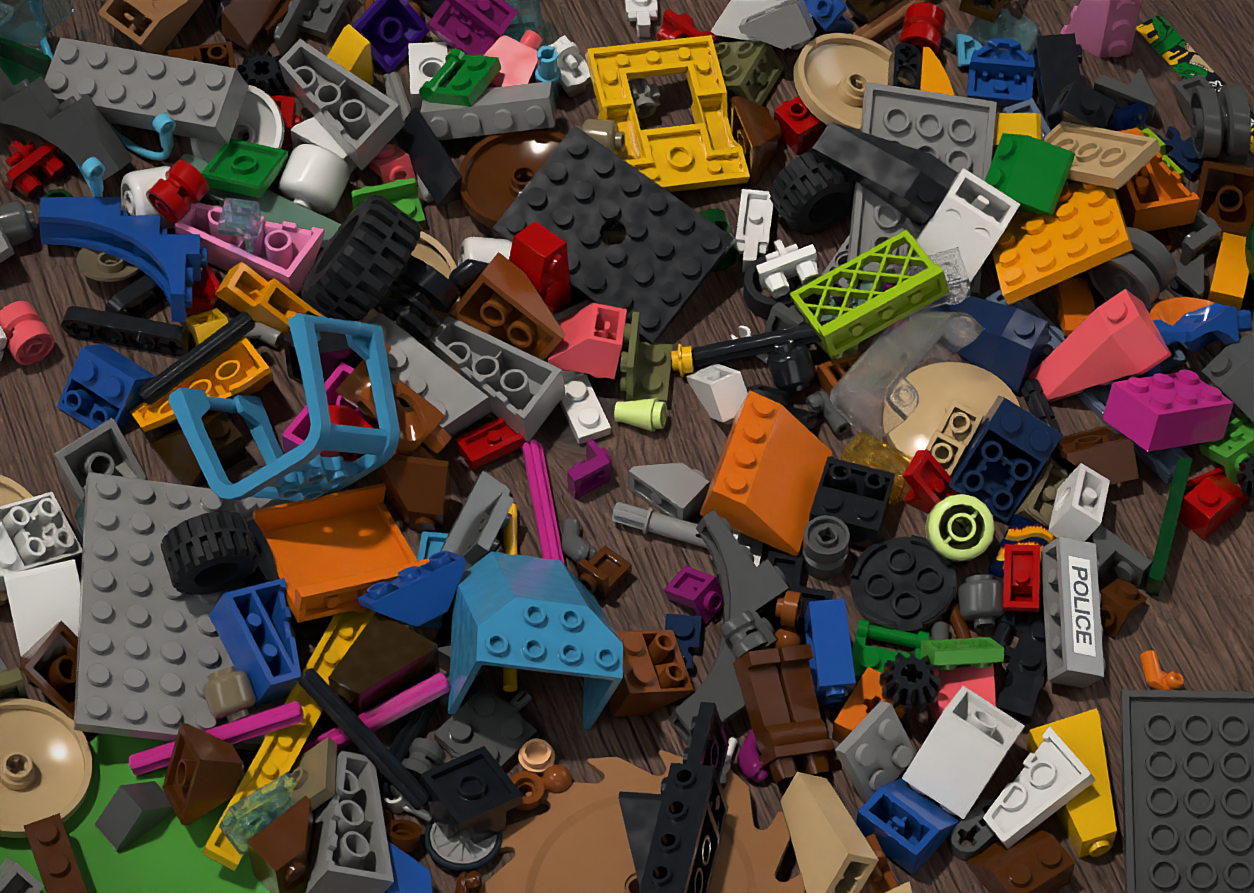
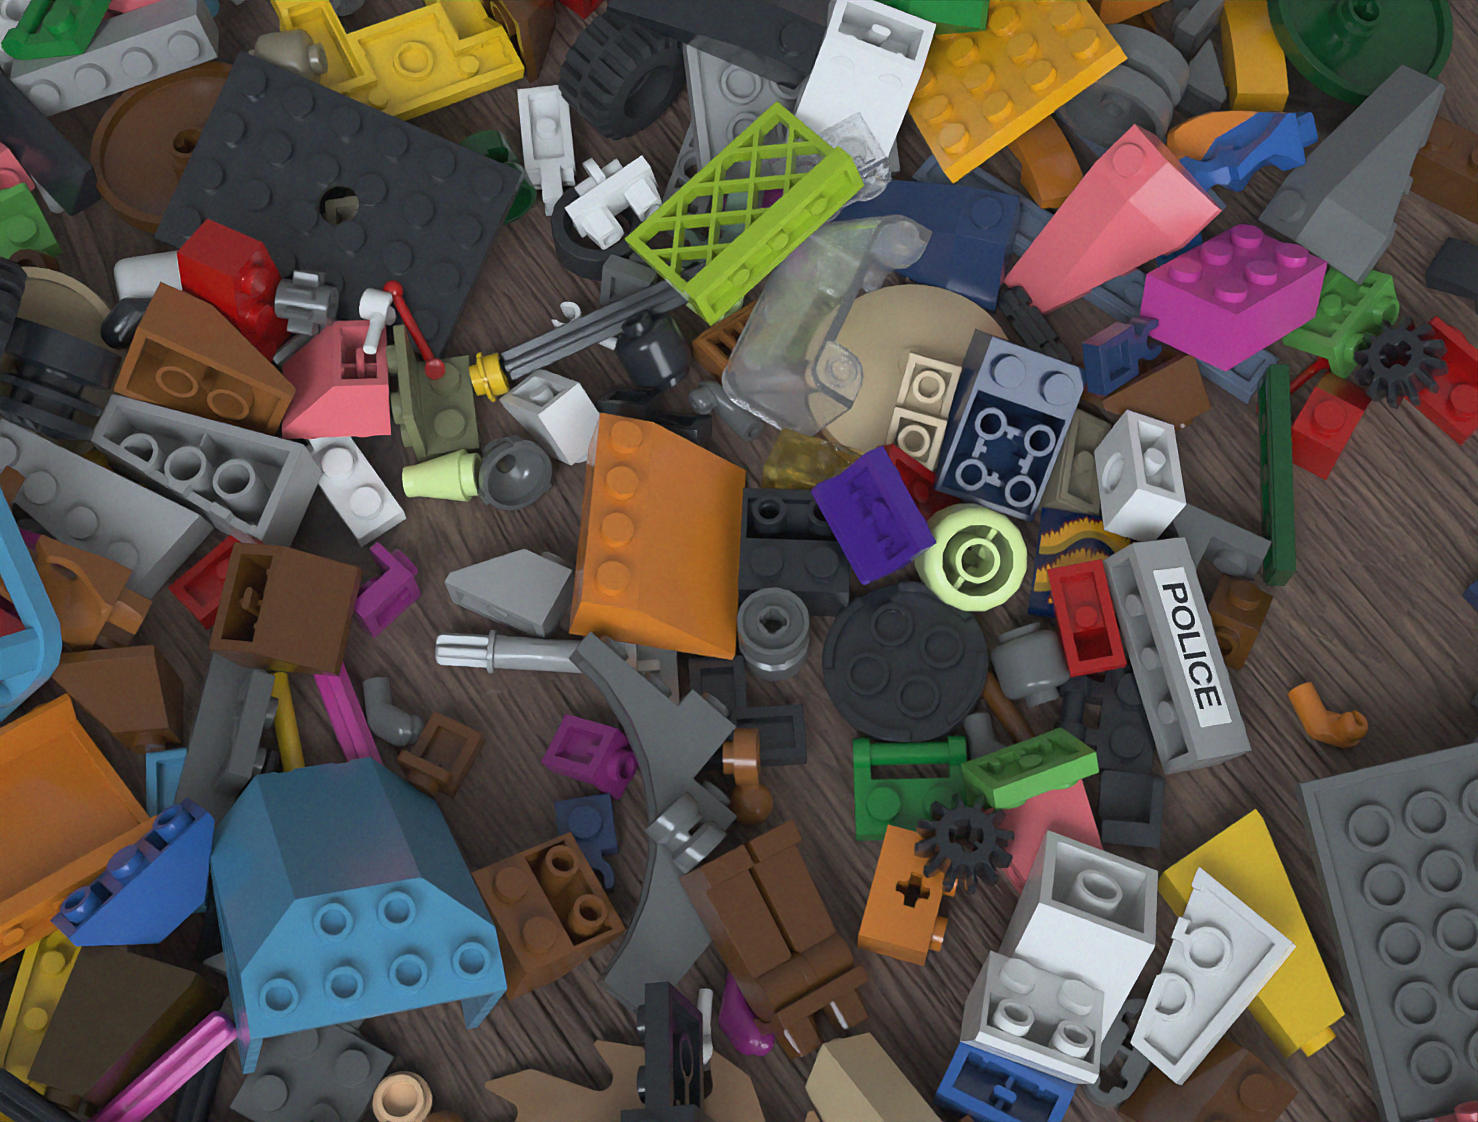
camera: 10 degrees left, 10 degrees up
(528, 463) = (285, 610): none -> reddish brown slope
(581, 287) = (306, 302): none -> dark grey gear
(623, 301) = (376, 308): none -> white hand
(650, 345) = (434, 367): none -> red hinge
(689, 423) = (517, 477): none -> dark grey piece
(832, 659) = (828, 819): blue window -> none
(876, 751) = (935, 970): light grey plate -> none
(904, 487) = (873, 516): none -> dark purple bracket
(925, 782) = (1035, 1019): none -> white slope
(1081, 426) = (1114, 354): none -> dark blue plate

